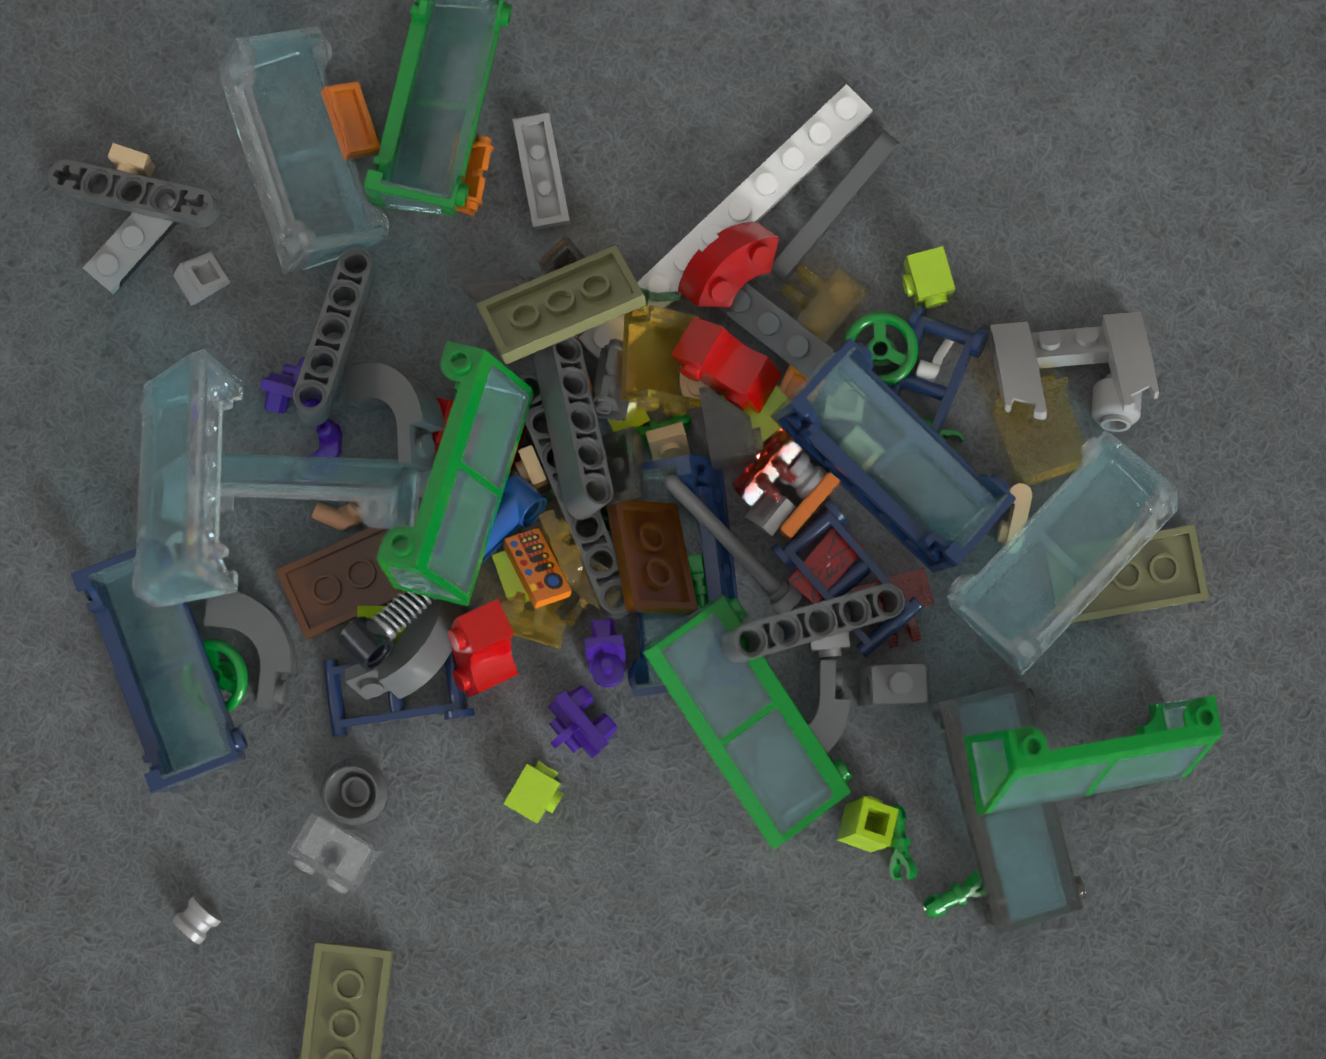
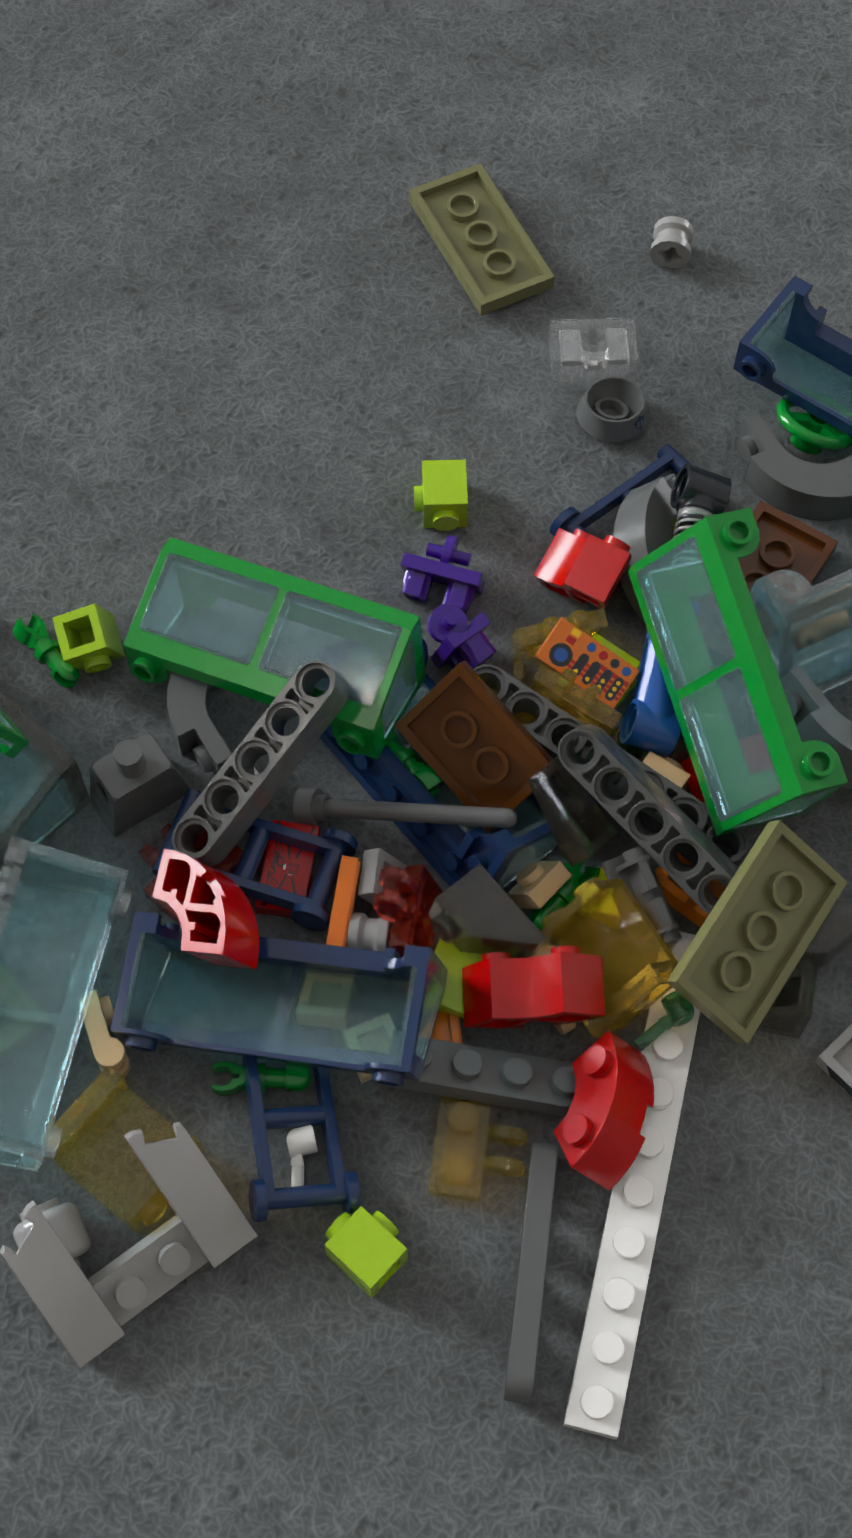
camera: 145 degrees right, 20 degrees down
(879, 320) = (362, 1142): green piece -> none
(908, 536) = (211, 911): none -> red brick

